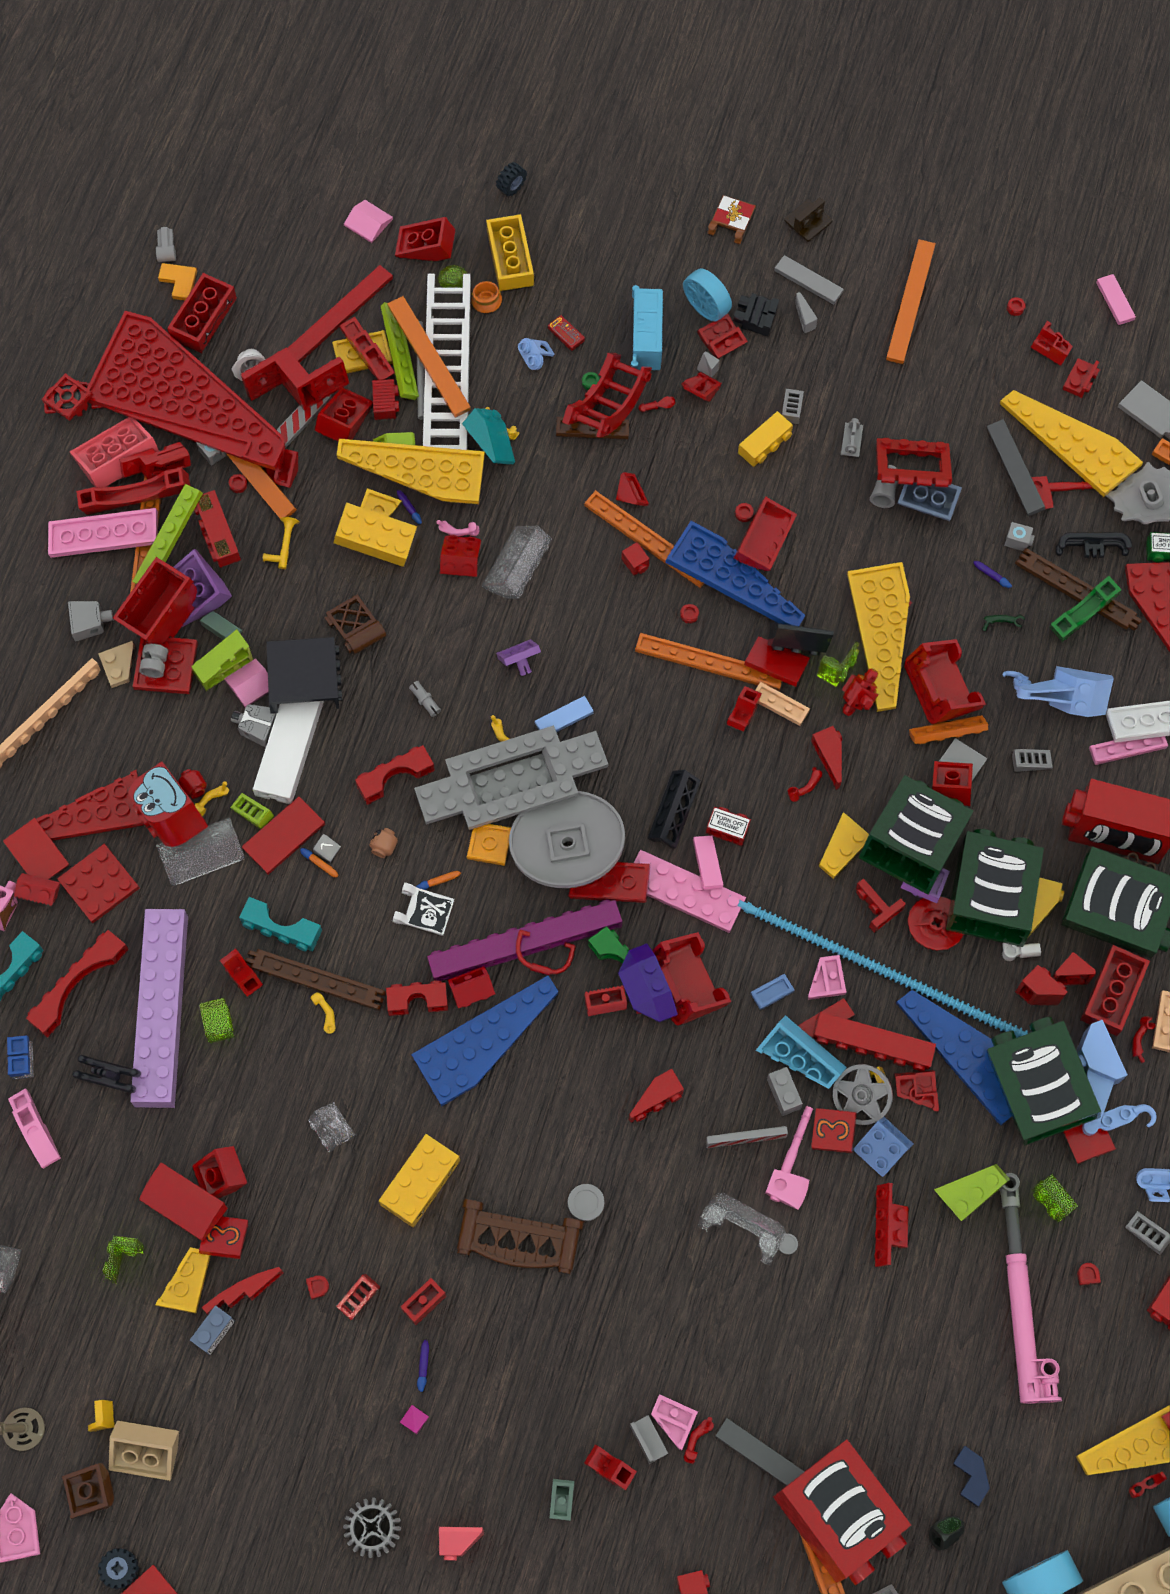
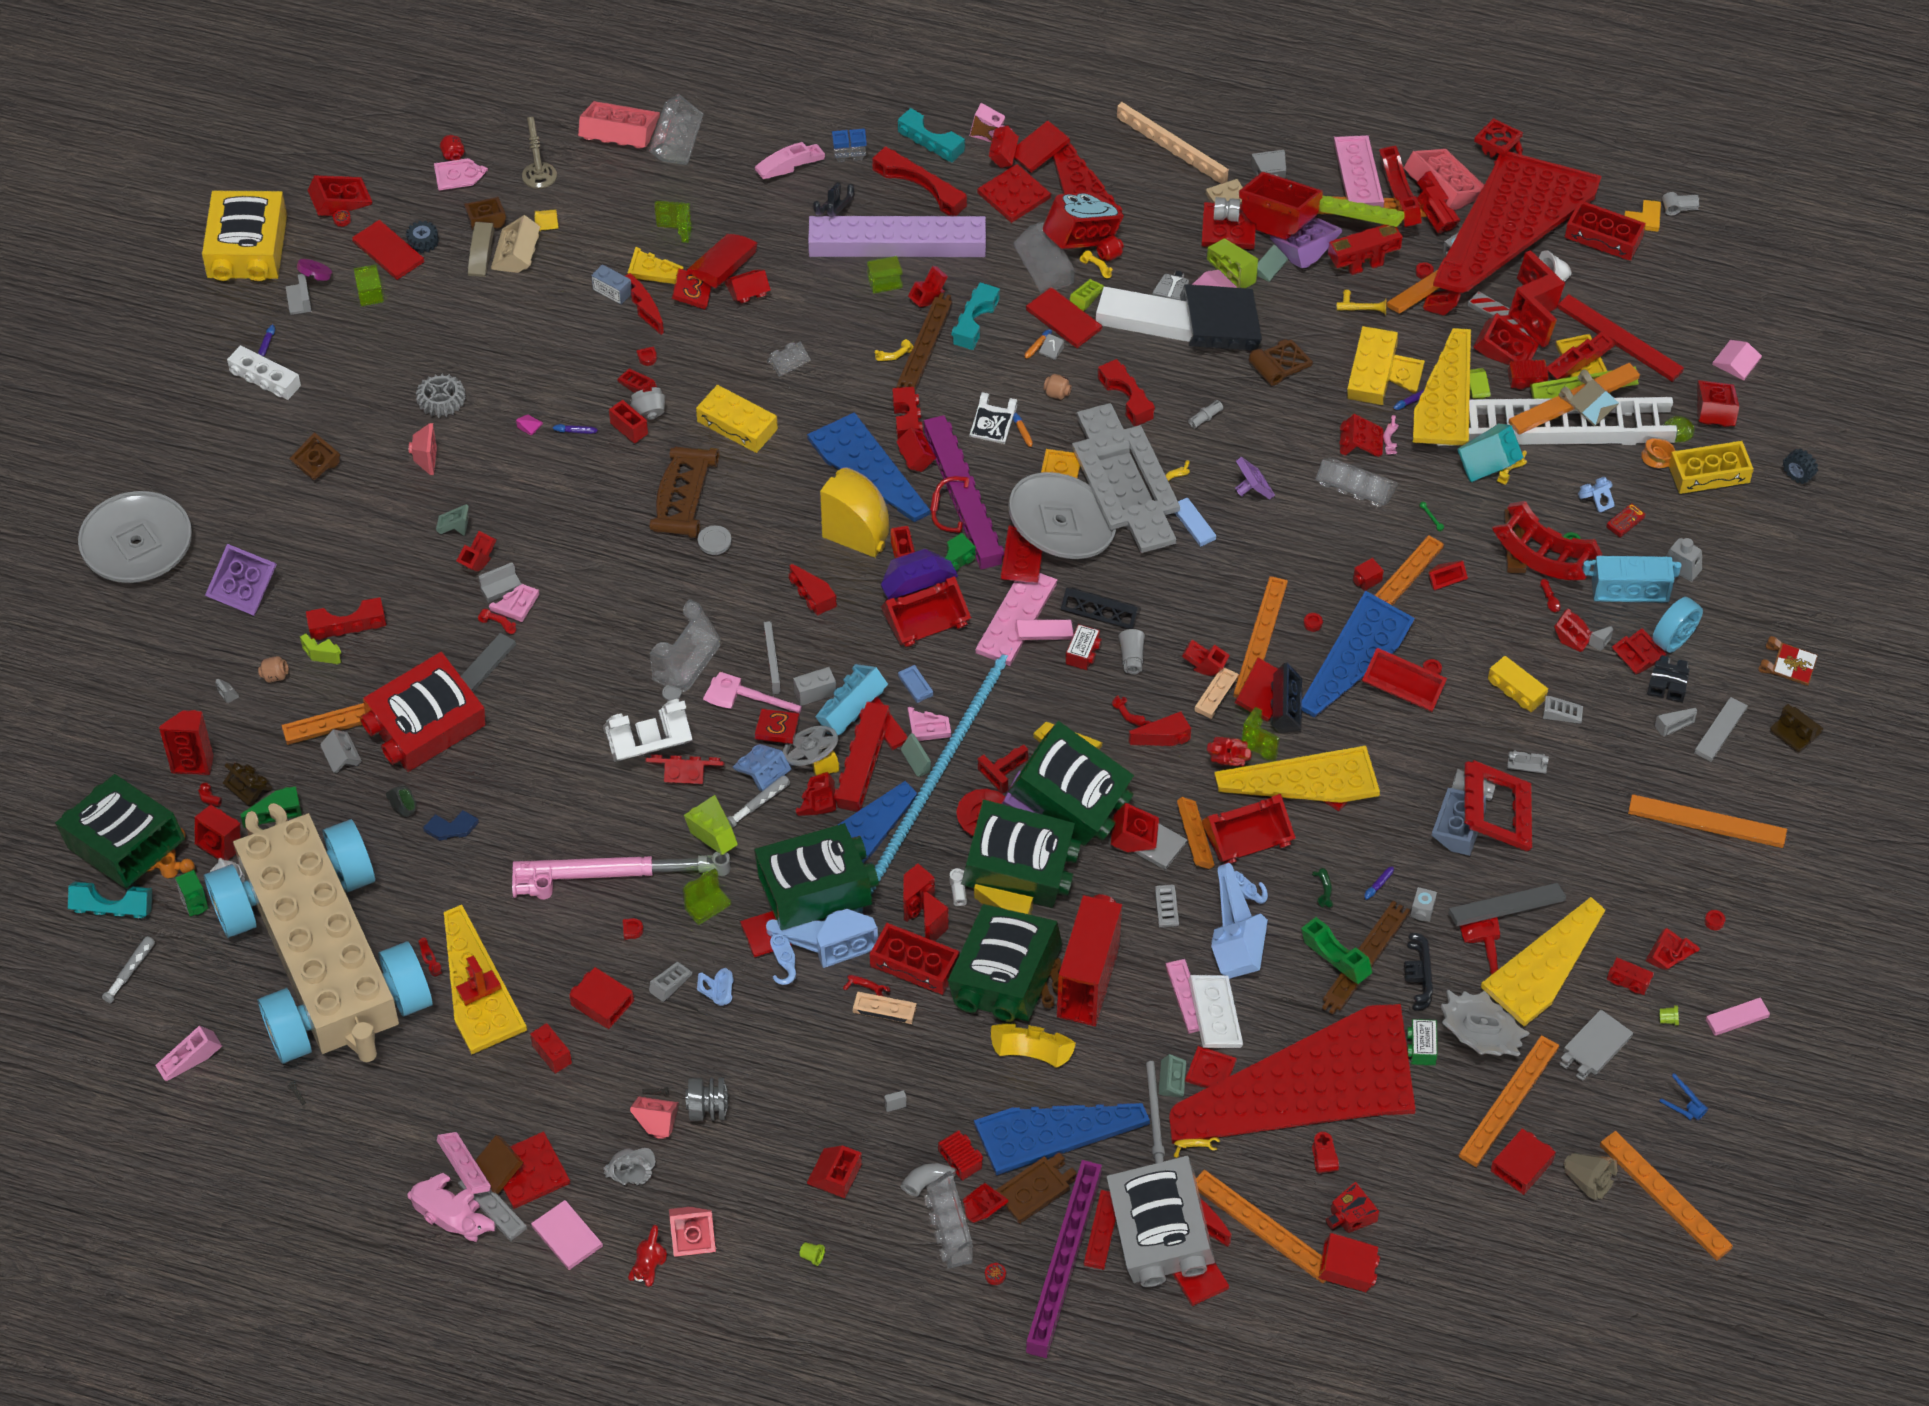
camera: 90 degrees right, 15 degrees down
(146, 1493) = (480, 249): none -> dark tan slope
(400, 1279) = (649, 403): none -> light grey cone
(435, 339) = (1591, 400): none -> dark tan flag
(560, 1047) = (854, 512): none -> yellow brick
(571, 493) = (1439, 526): none -> green hinge
(619, 287) = (1689, 557): none -> light grey torso
(734, 779) = (1132, 650): none -> light grey plant
(866, 990) = (916, 756): none -> sand green slope
(868, 1258) = (674, 726): none -> white piece
(914, 1136) = (773, 789): none -> light grey piece
(1122, 349) = (1669, 1016): none -> lime piece

